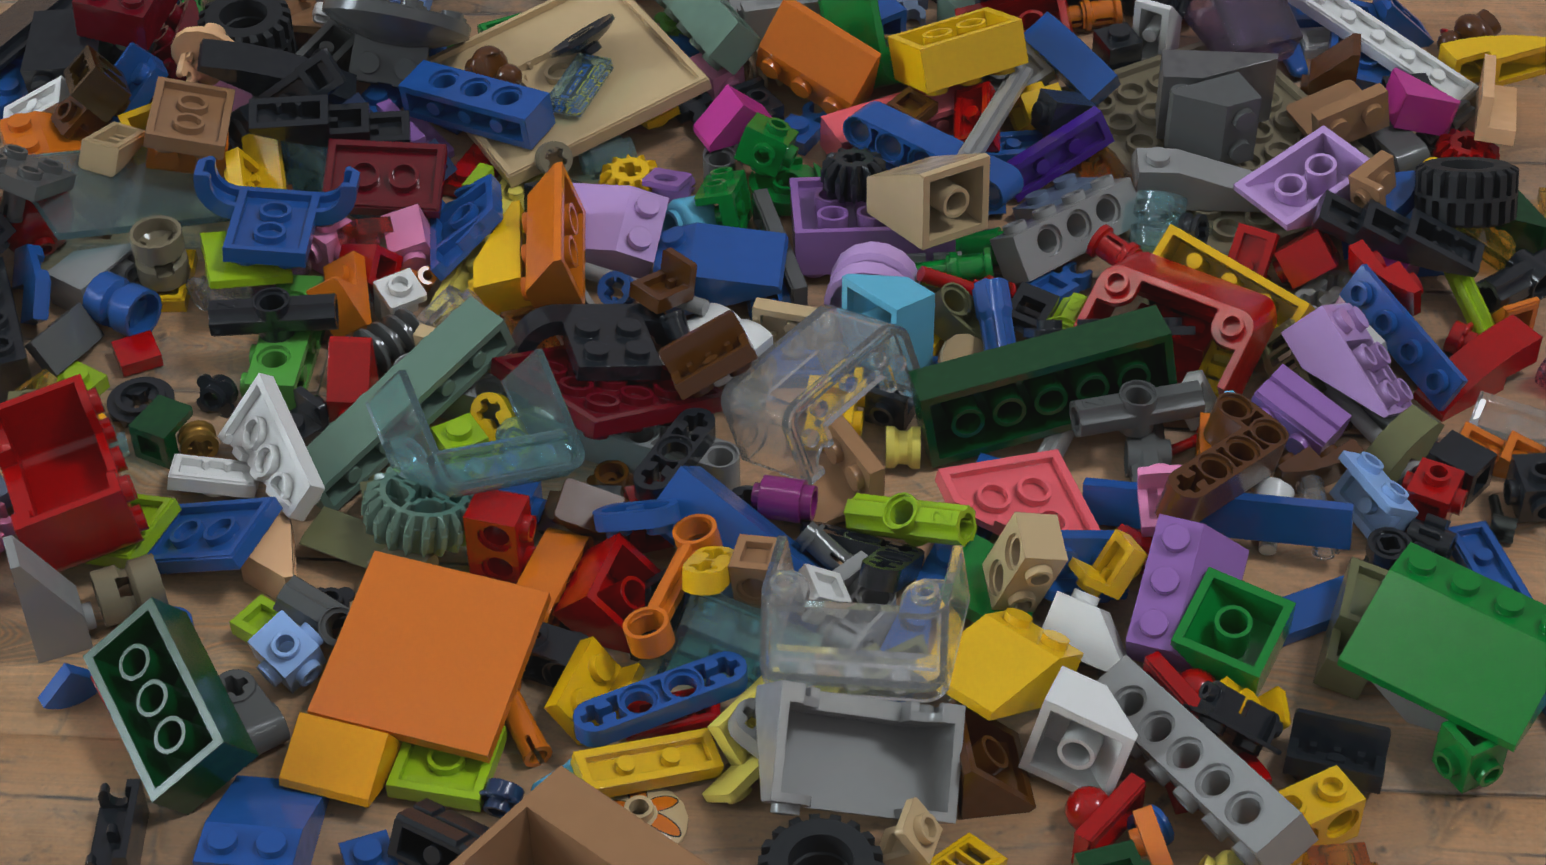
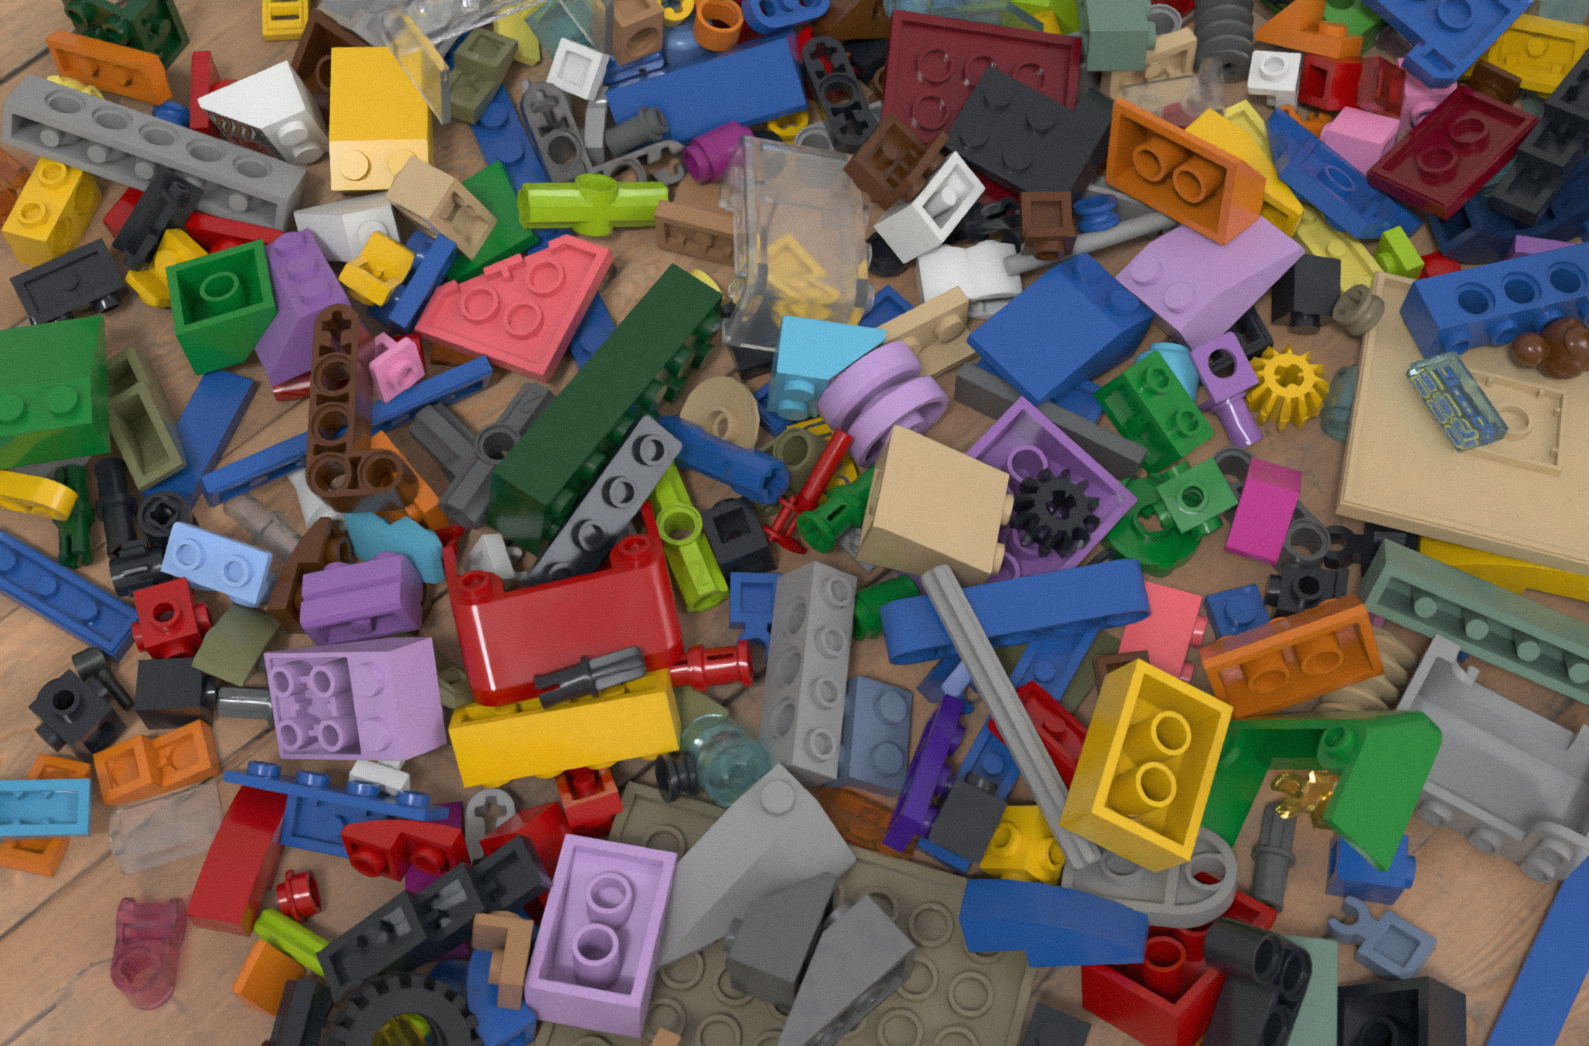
camera: 135 degrees right, 20 degrees up
(585, 40) = (1524, 436): black dish -> none
(1205, 256) = (591, 676): none -> black axle

